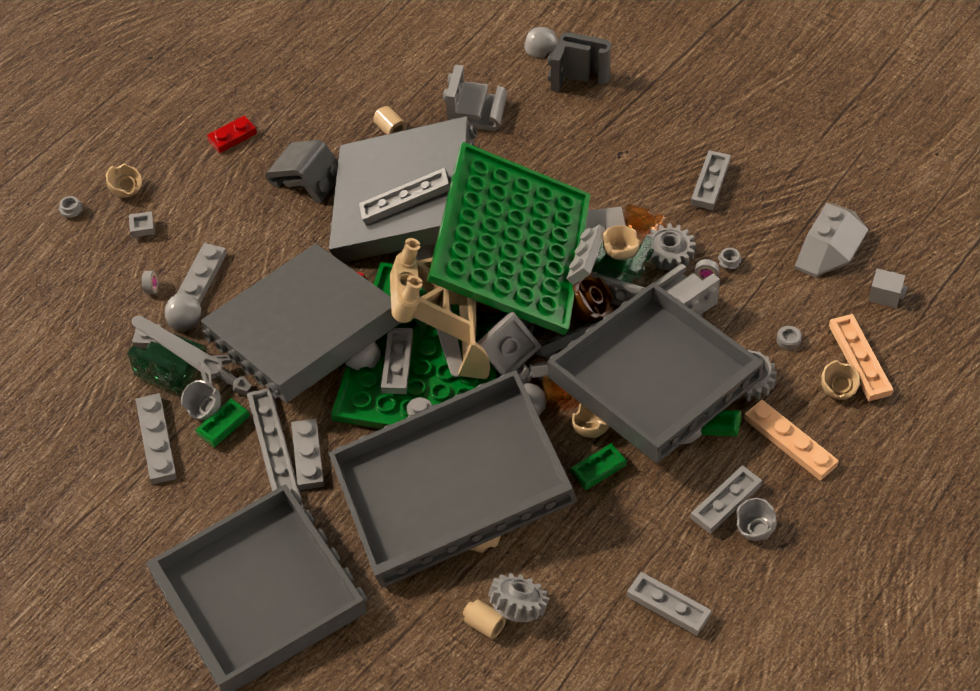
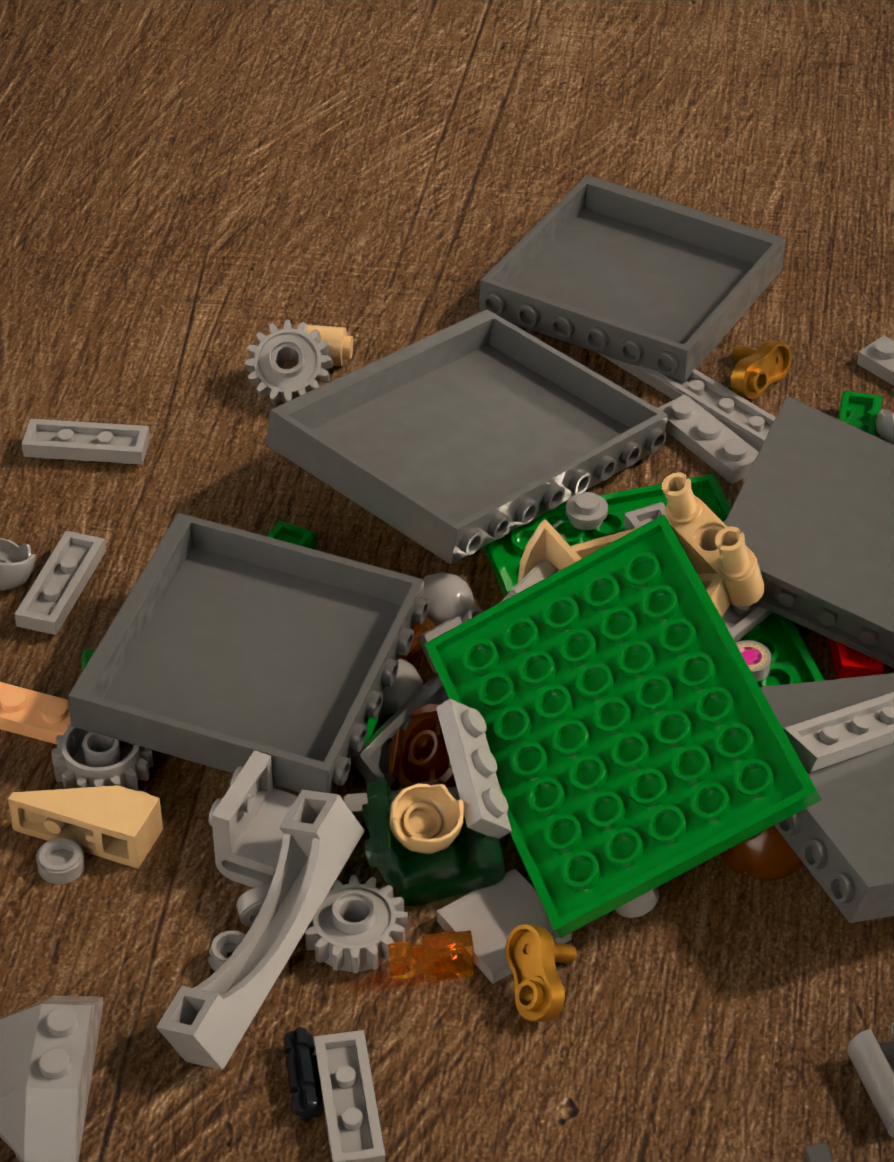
camera: 150 degrees right, 10 degrees down
(231, 483) = (759, 367): none -> pearl gold piece
(605, 193) = (532, 961): none -> pearl gold piece
(690, 249) = (213, 1017): none -> light grey arch
(723, 199) = (303, 1074): none -> black axle
(760, 335) = (102, 819): none -> tan slope

